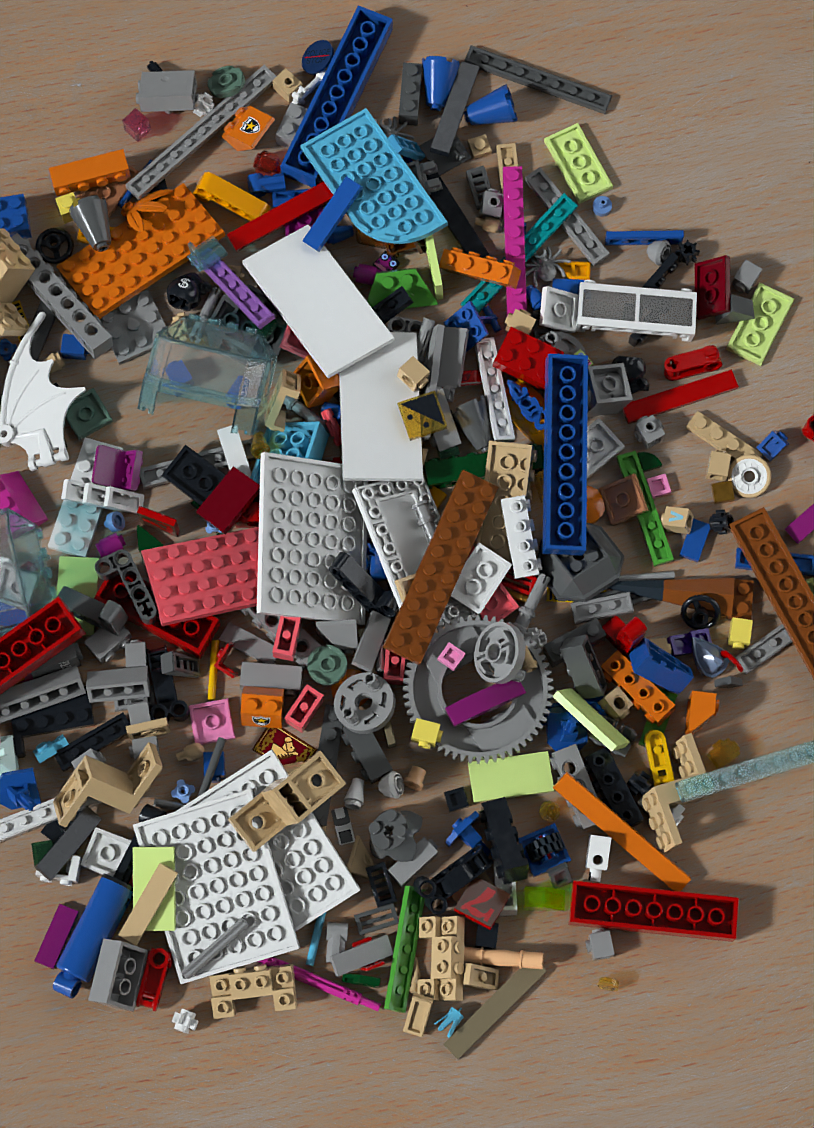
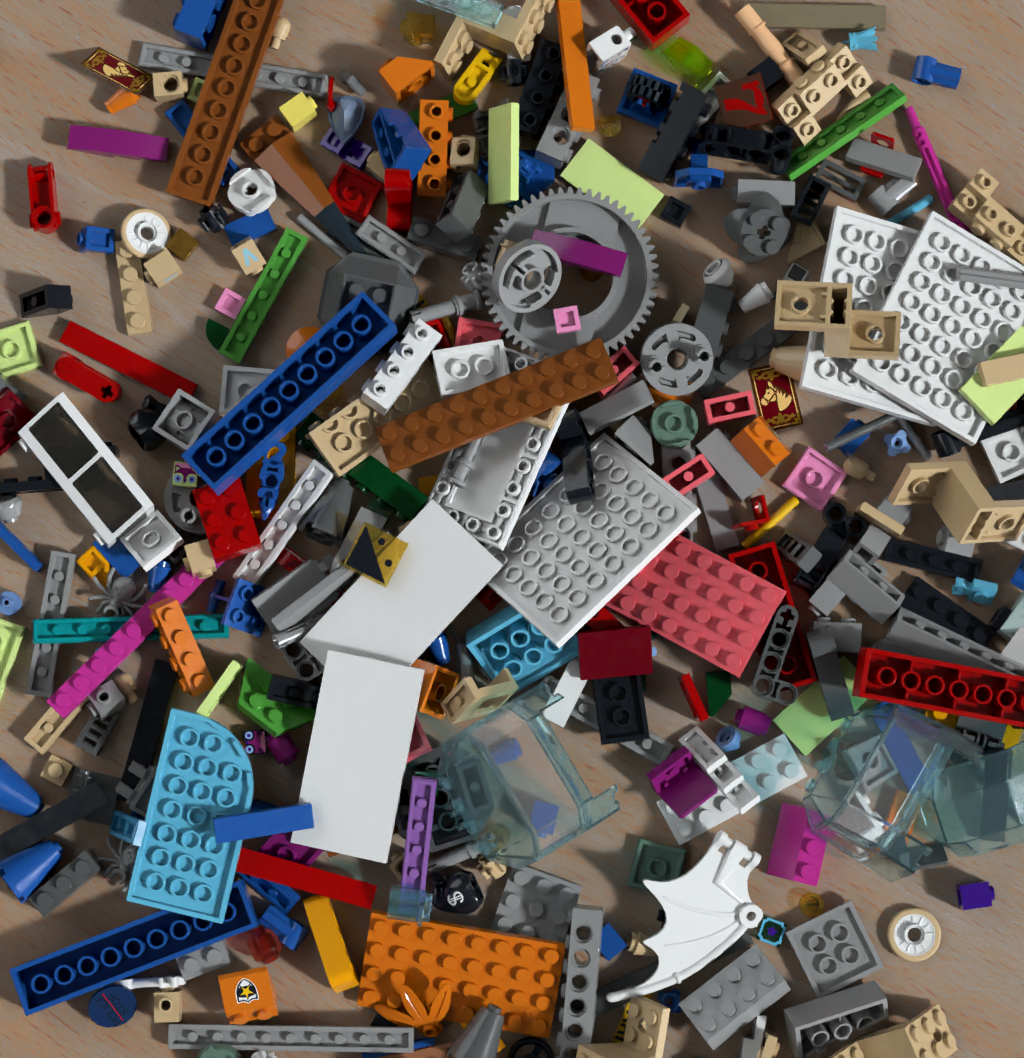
camera: 135 degrees left, 10 degrees up
(259, 445) = (539, 673): clear yellow cone -> none
(332, 425) = (455, 634): coral axle -> none
(362, 980) = (902, 142): dark green tile -> none
(387, 1044) = (929, 71): none -> blue piece
(413, 374) = (344, 599): tan brick -> none
(415, 778) = (692, 261): light nougat piece -> none
(418, 1015) = (884, 68): tan tile -> none
(426, 733) = (654, 275): light yellow brick -> none
(559, 875) = (655, 65): dark grey tile -> none
(623, 499) = (274, 319): nougat tile -> none
(649, 431) = (186, 348): light grey brick -> none
(659, 618) = (354, 192): none -> red tile
(700, 621) = (316, 156): black piece -> none
(706, 564) = (255, 203): none -> white plate
(762, 383) = (46, 301): none -> black slope
(801, 669) = (280, 32): none -> tan cylinder

